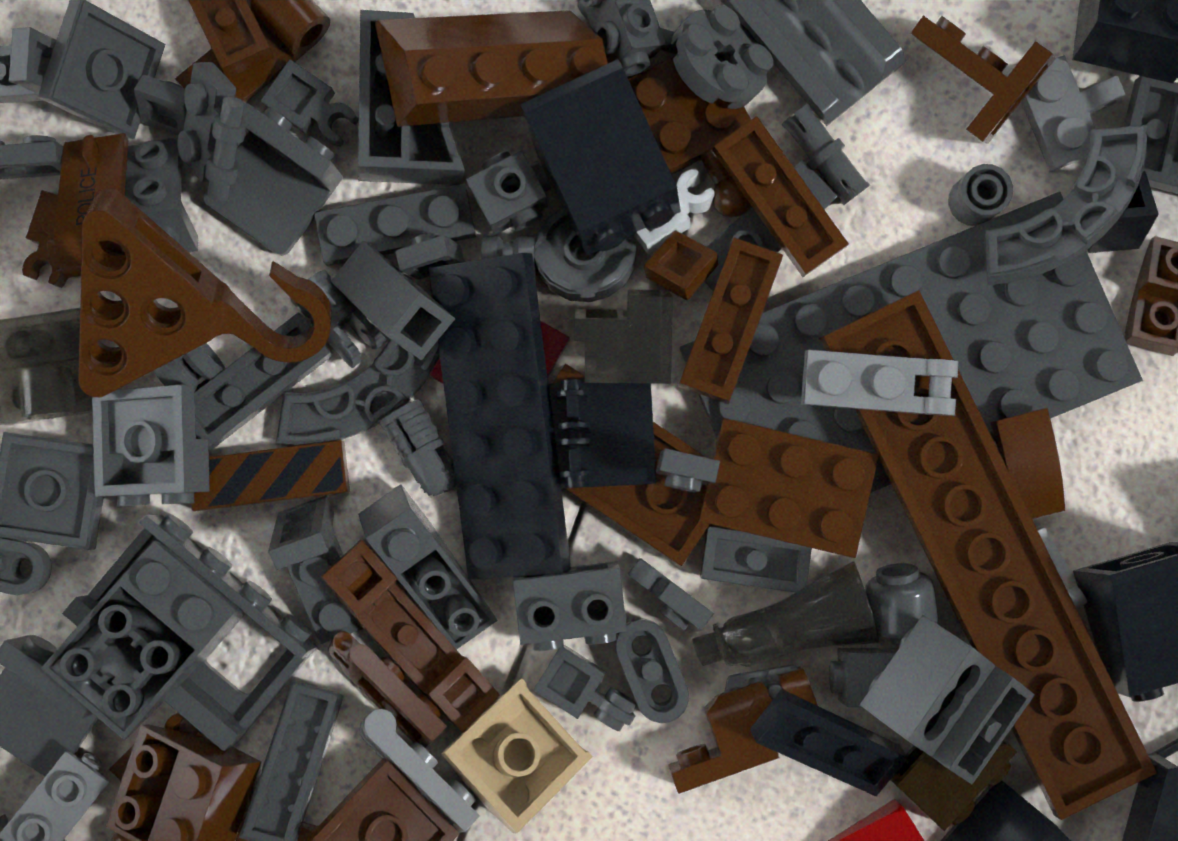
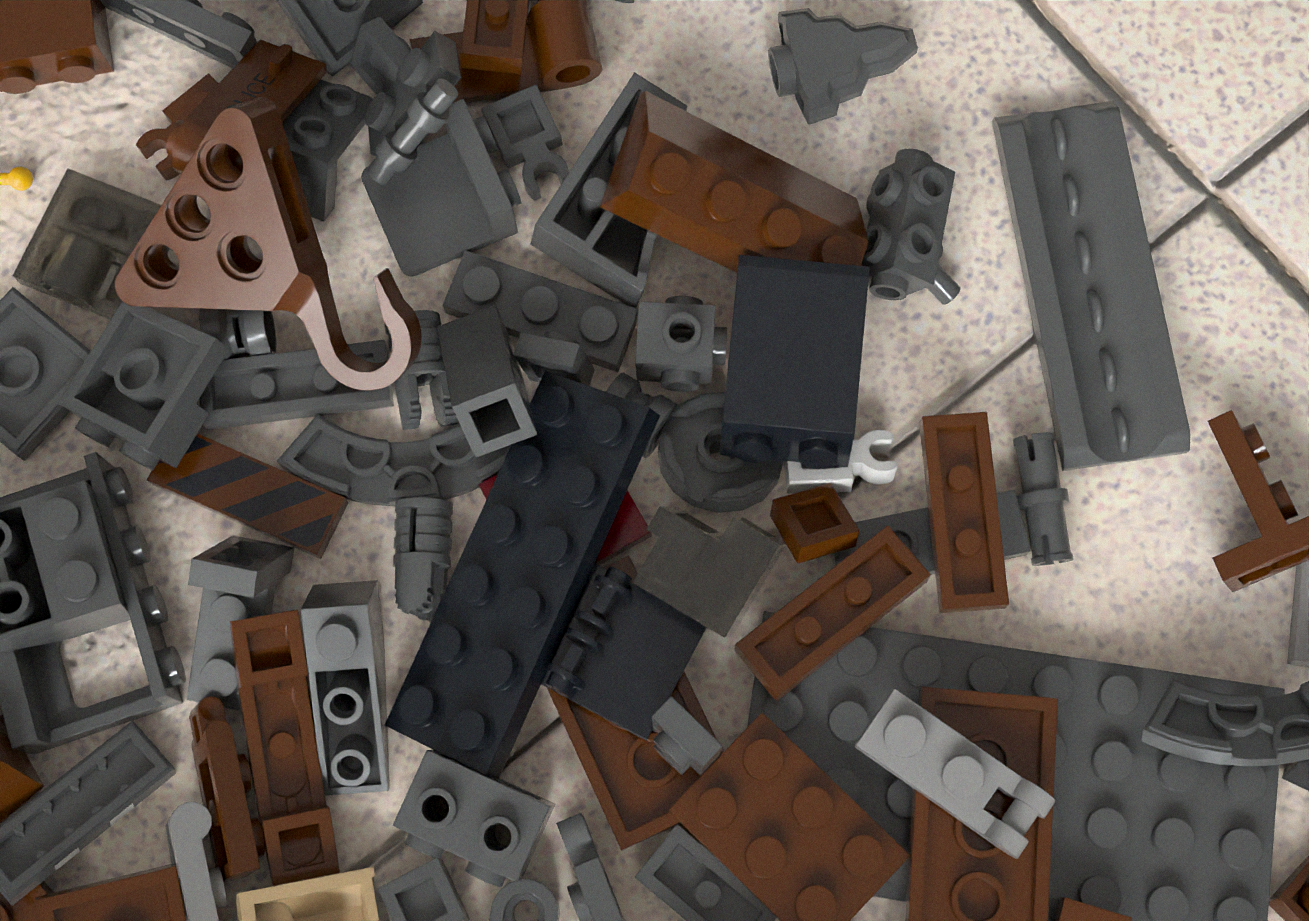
camera: 30 degrees right, 10 degrees down
(690, 128) = (916, 366): reddish brown plate -> none
(744, 60) = (1002, 306): dark grey plate -> none
(975, 204) = (1178, 645): dark grey wheel -> none

